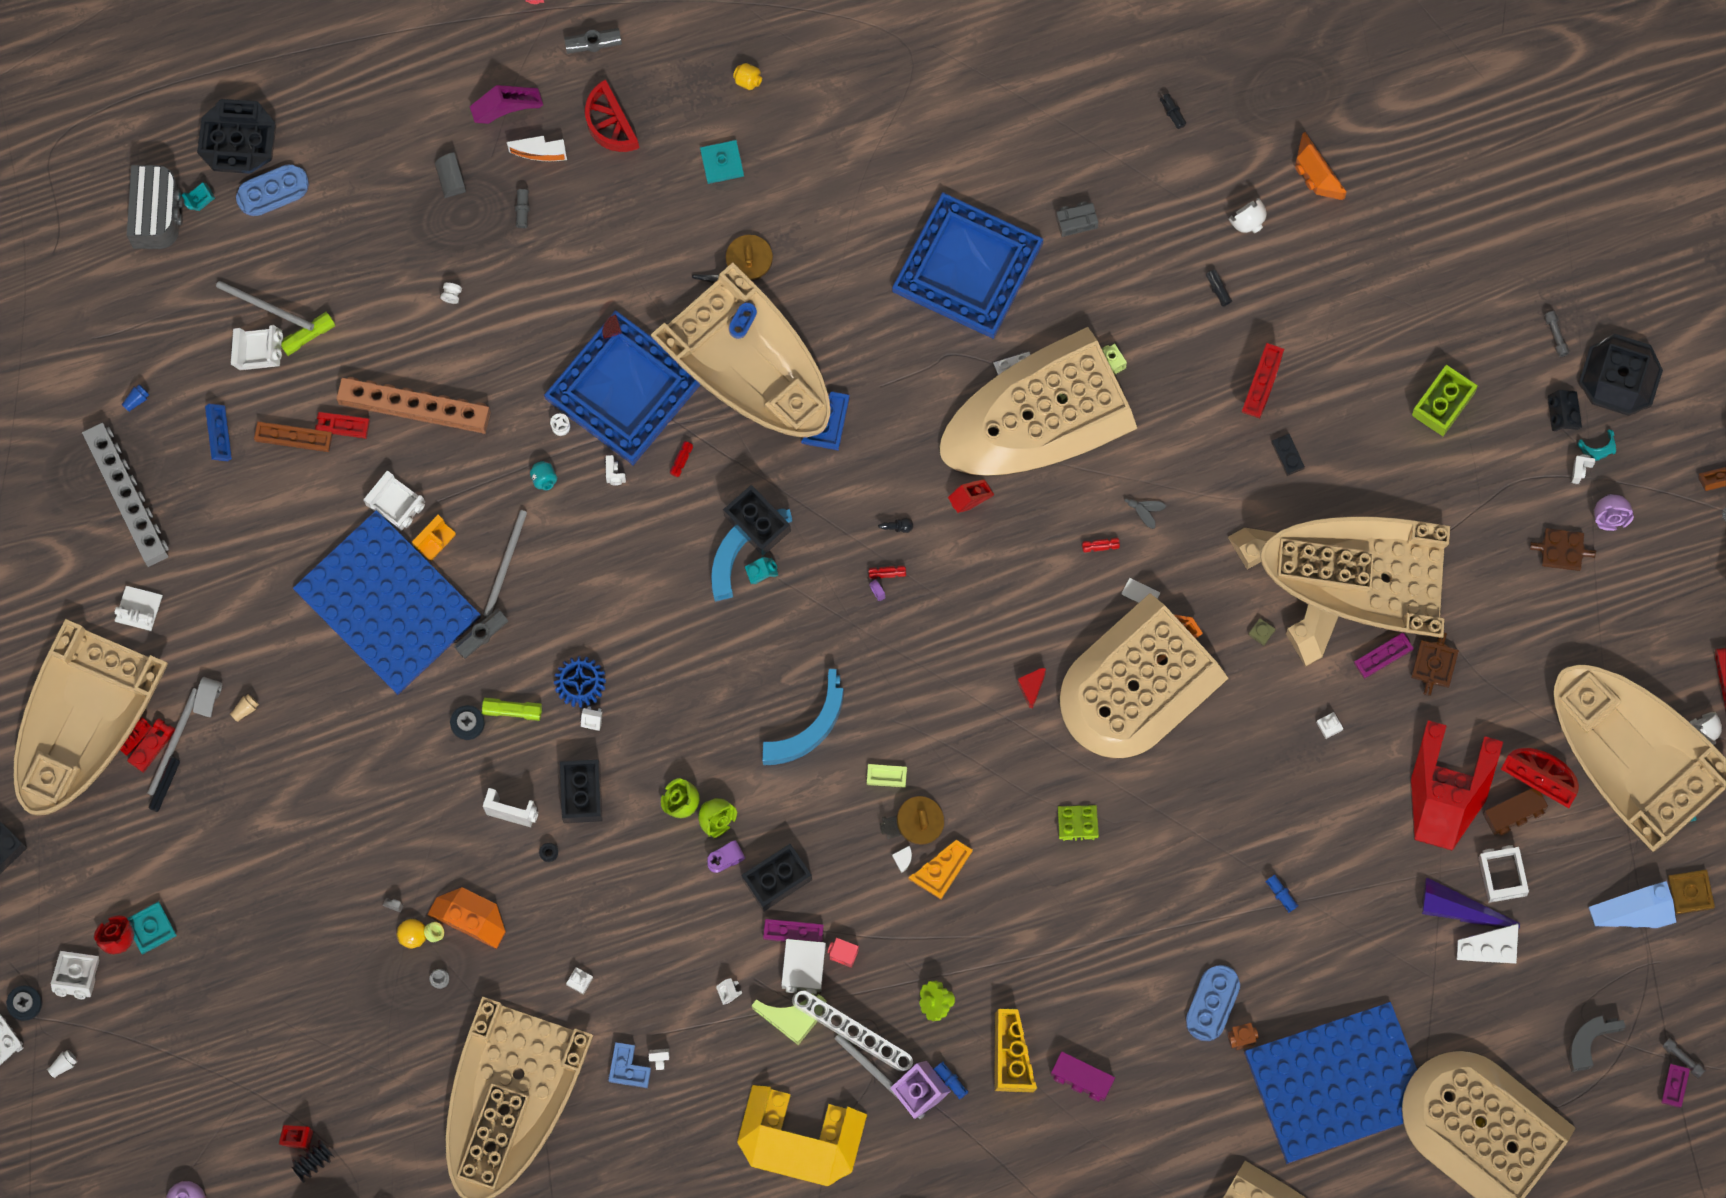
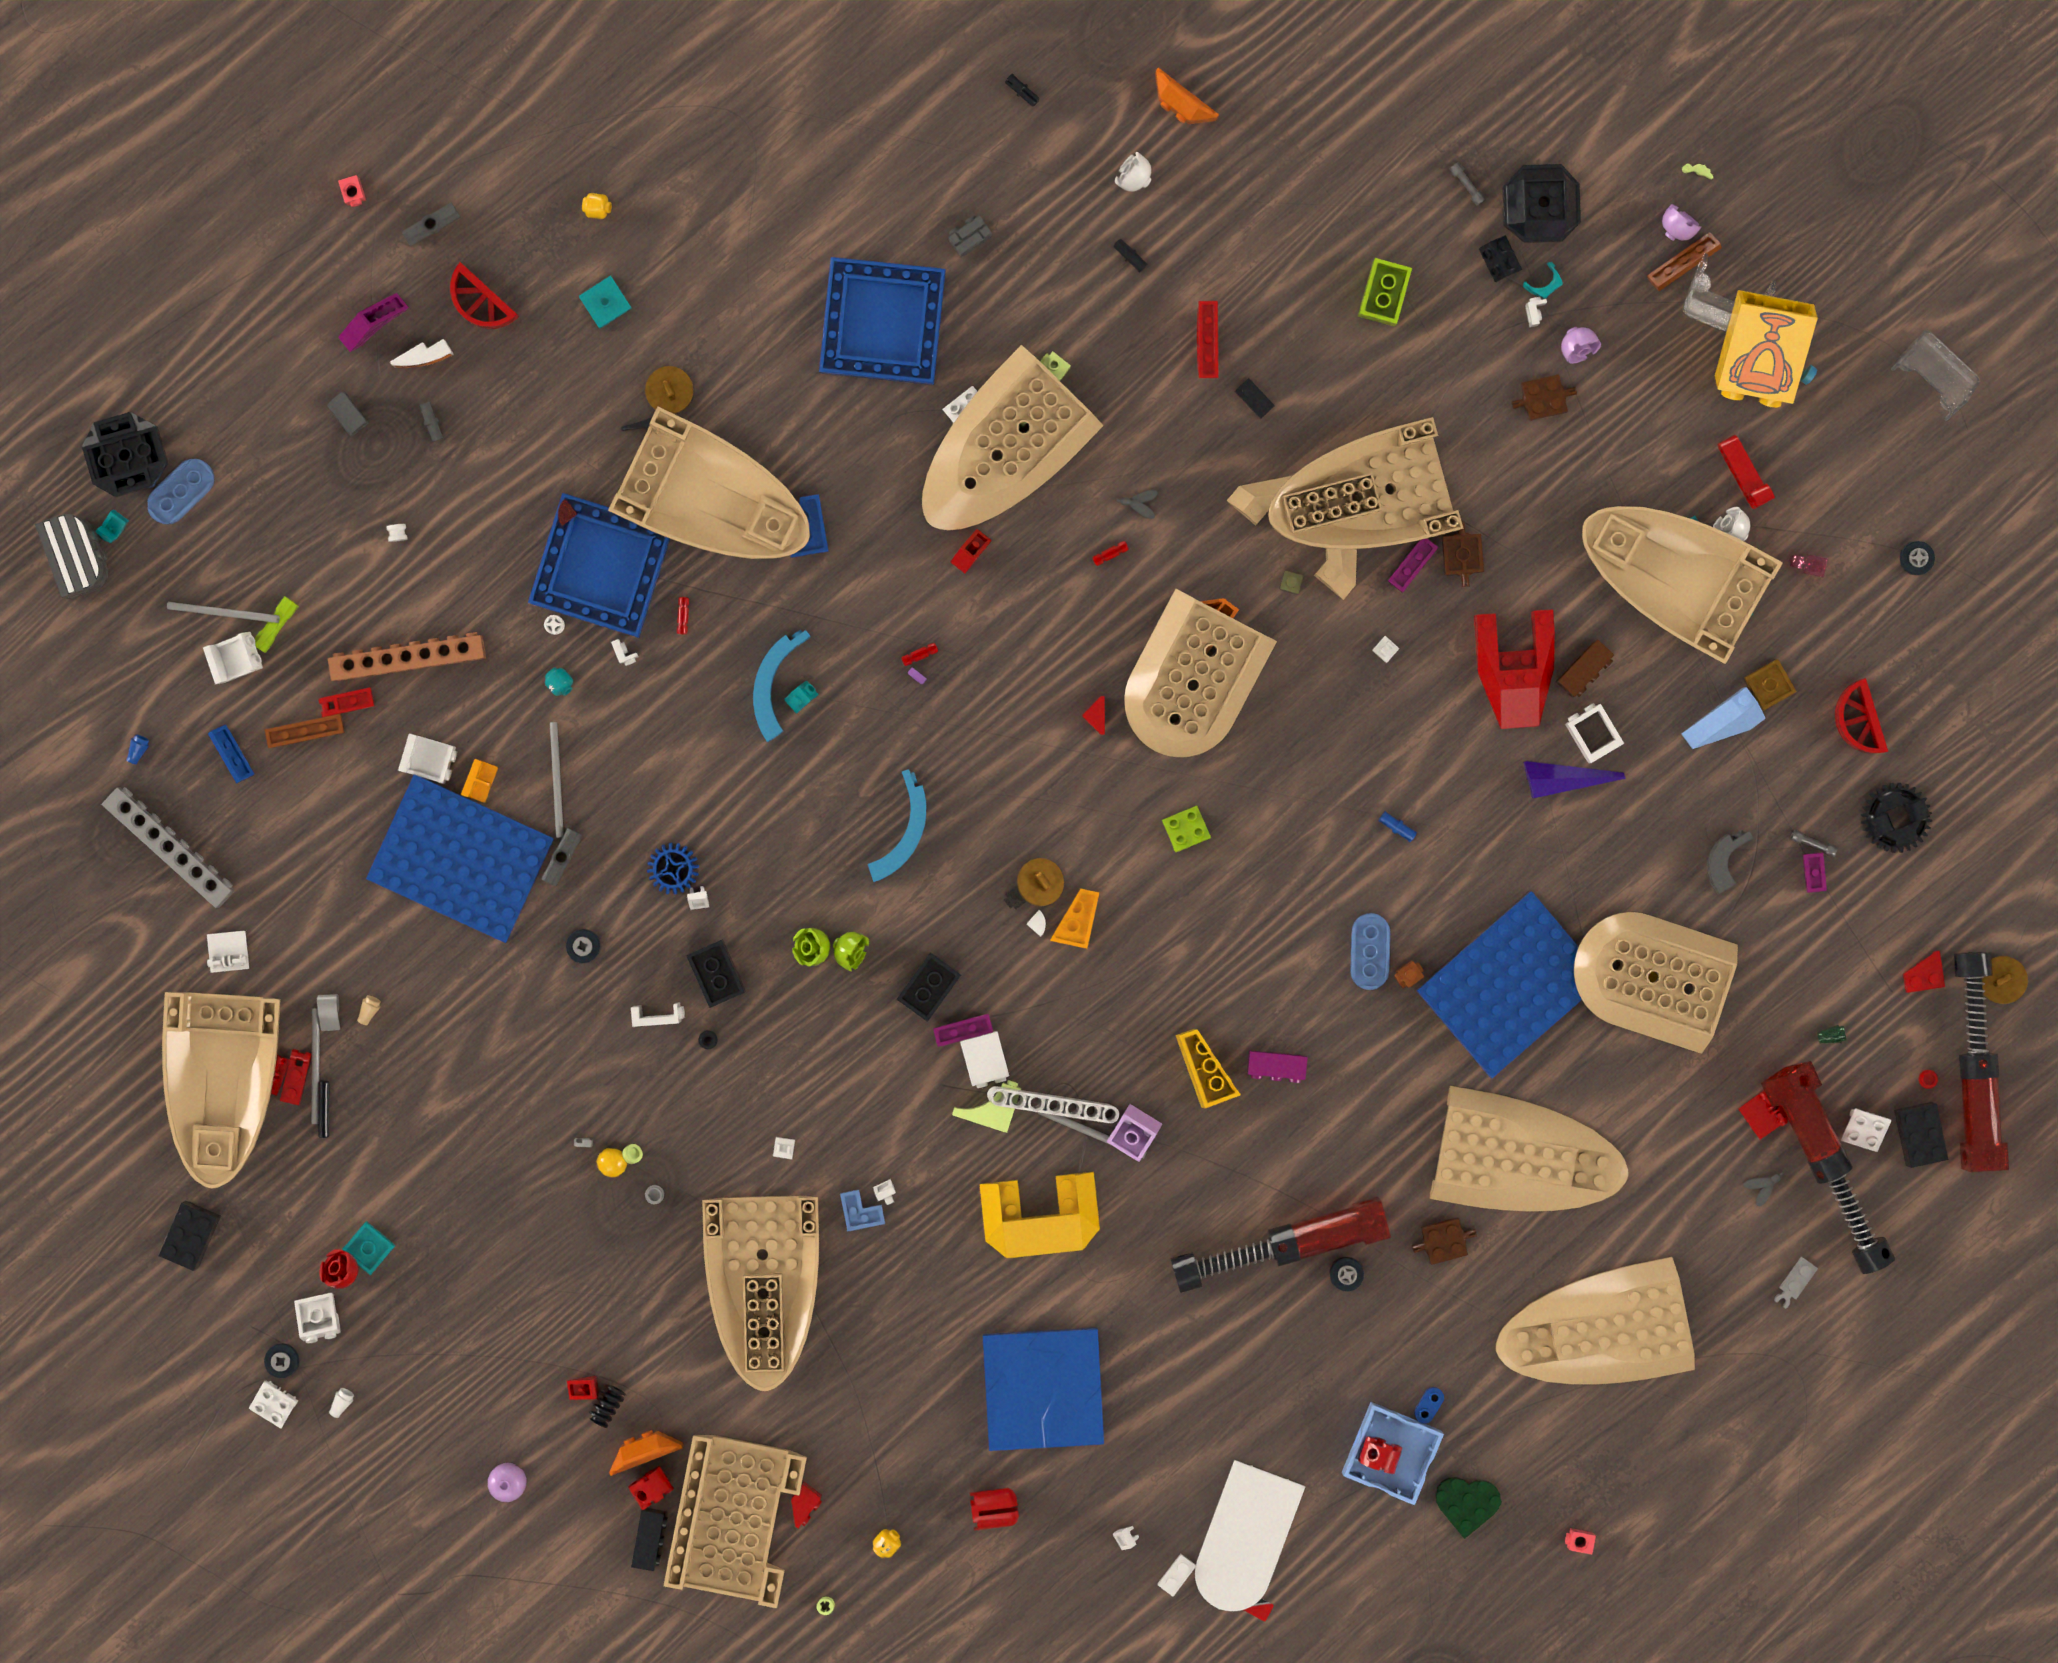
camera: 25 degrees left, 15 degrees up
(470, 915) = (659, 1126): orange wedge -> none
(526, 710) = (606, 921): lime axle -> none
(727, 856) = (876, 981): medium lavender piece -> none
(727, 991) = (924, 1108): white tile -> none
(742, 321) = (690, 460): blue plate -> none
(757, 520) = (780, 655): black brick -> none
(843, 952) = (1016, 1032): coral brick -> none
(886, 775) = (993, 850): yellowish green tile -> none
(904, 525) = (918, 602): black bar -> none
(935, 1000) = (1118, 1047): lime plant -> none
(951, 1080) = (1158, 1113): blue pin -> none
(1138, 591) = (1163, 585): white sticker -> none
(1491, 946) = (1604, 806): white wing -> none
(1543, 773) = (1621, 635): red window -> none

